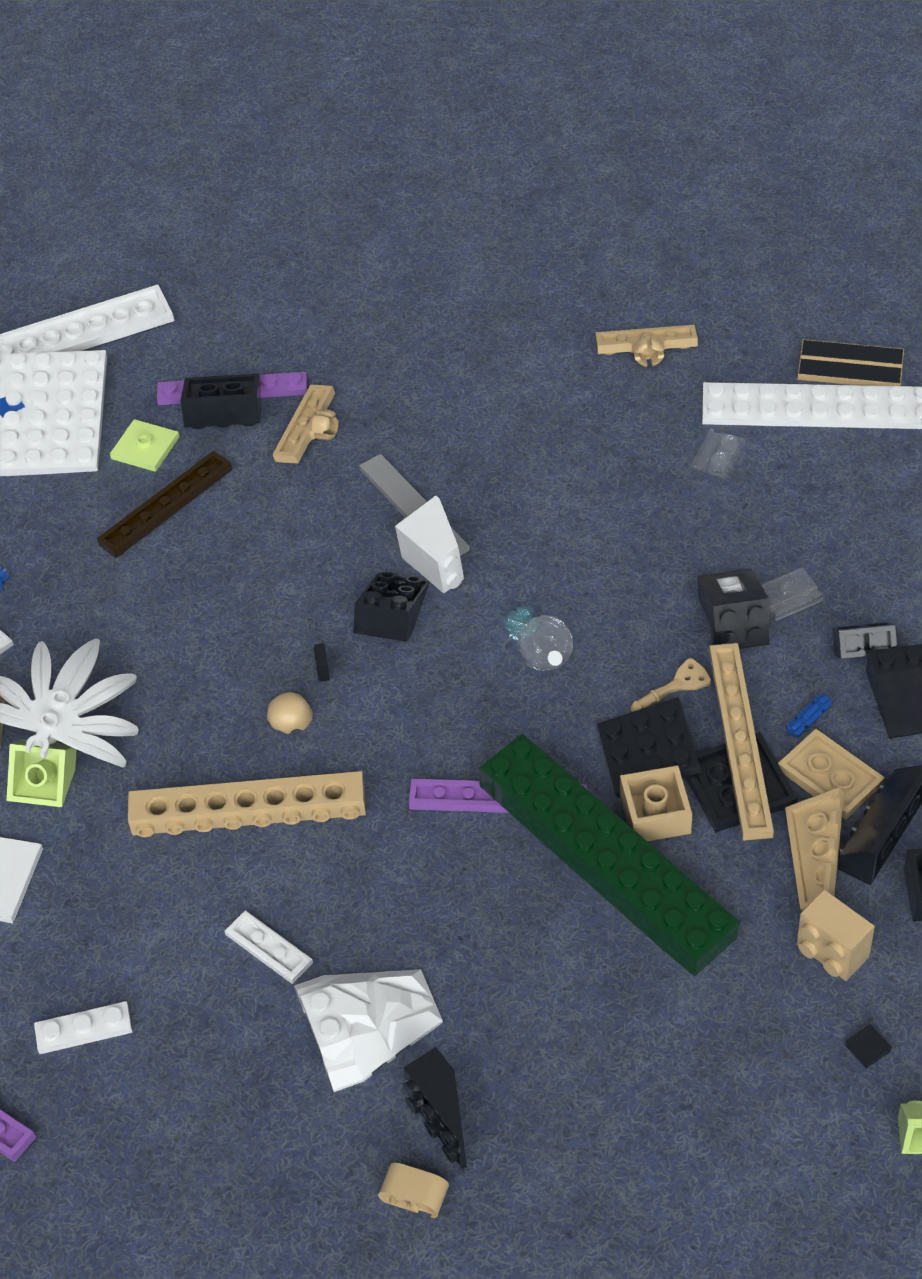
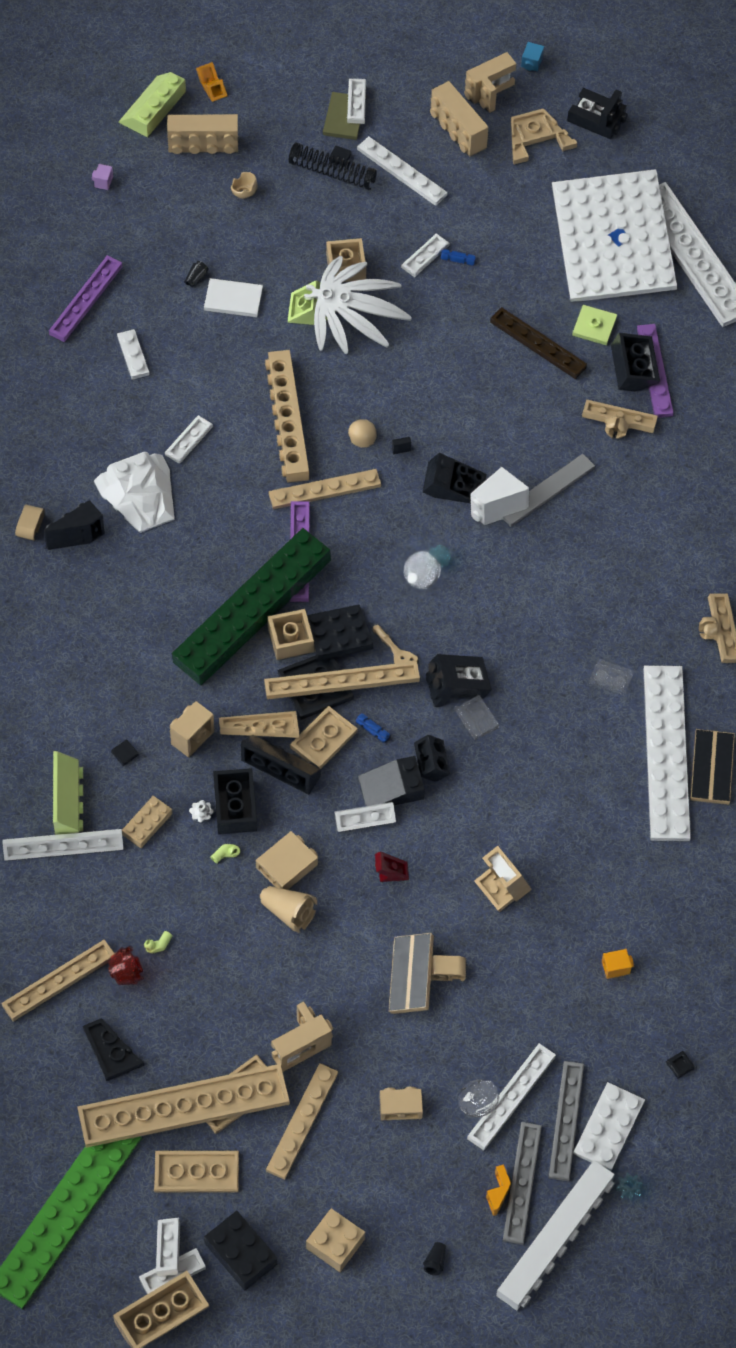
camera: 80 degrees right, 10 degrees up
(385, 766) = (325, 488): none -> tan plate

